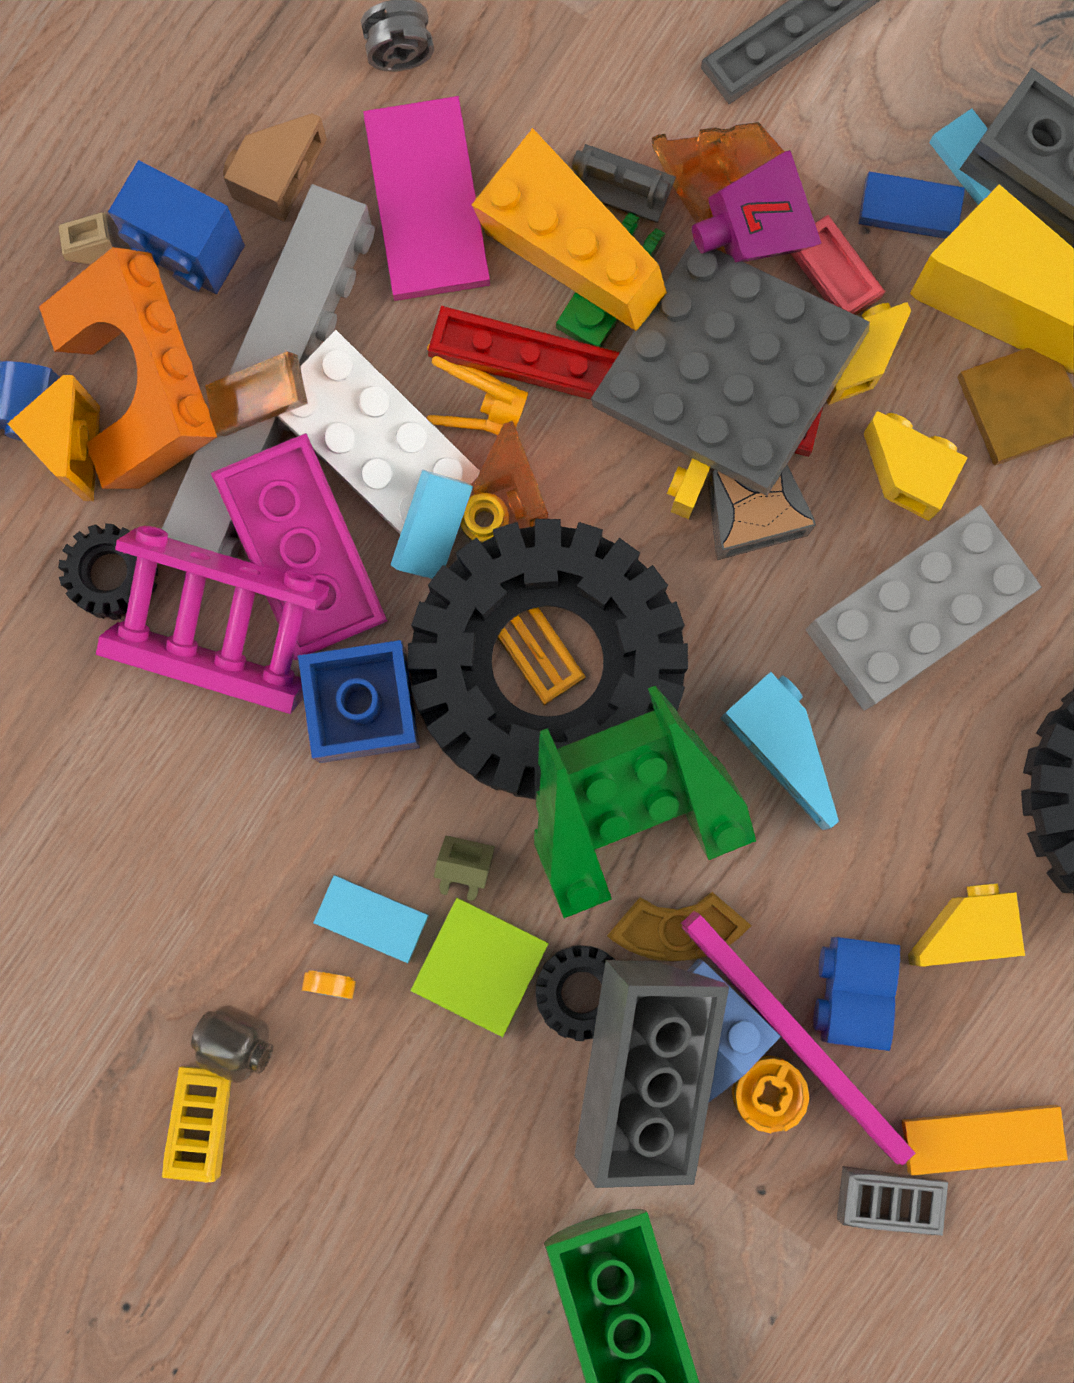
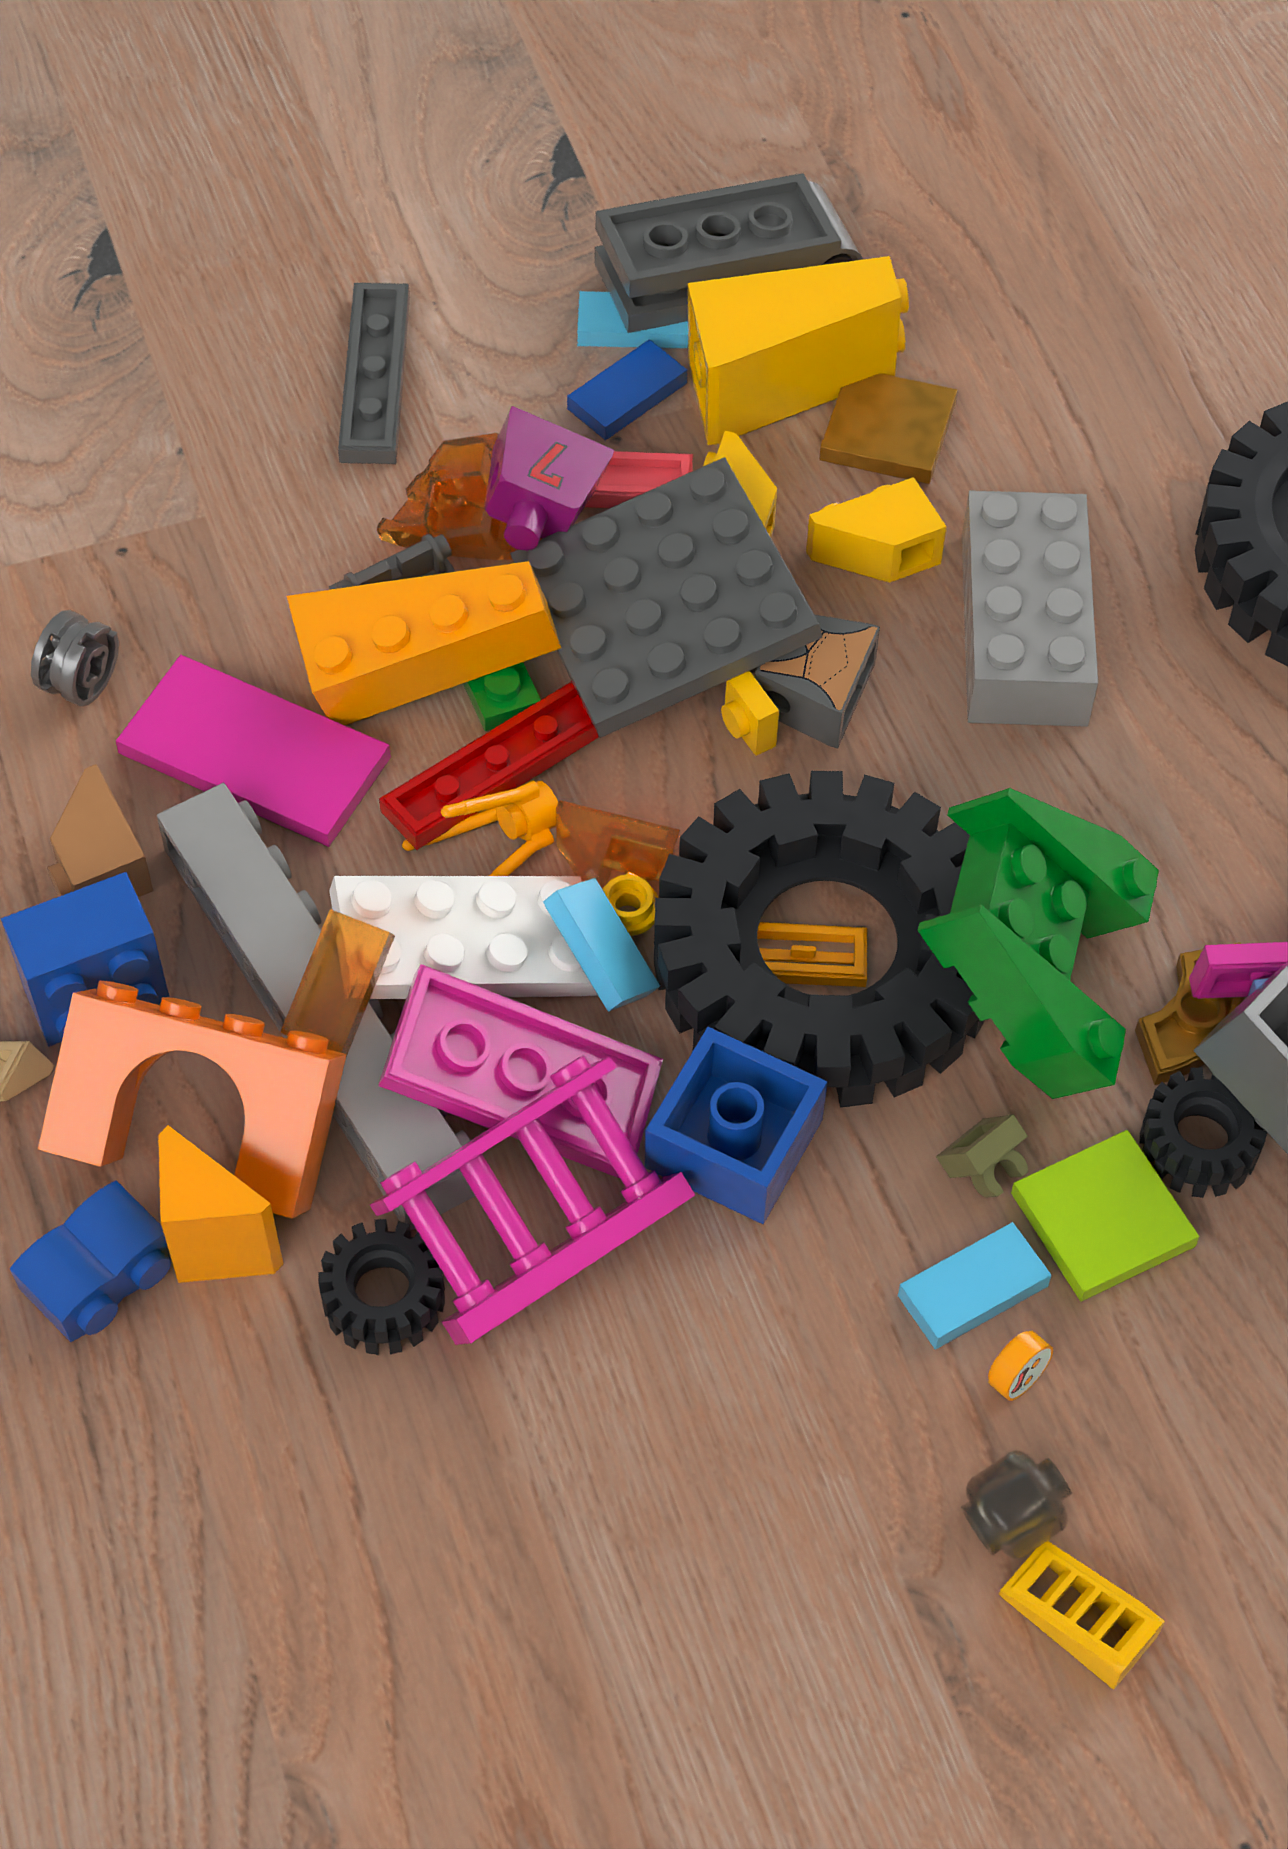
camera: 55 degrees left, 25 degrees down
(781, 738) = (1094, 789): medium azure slope -> none

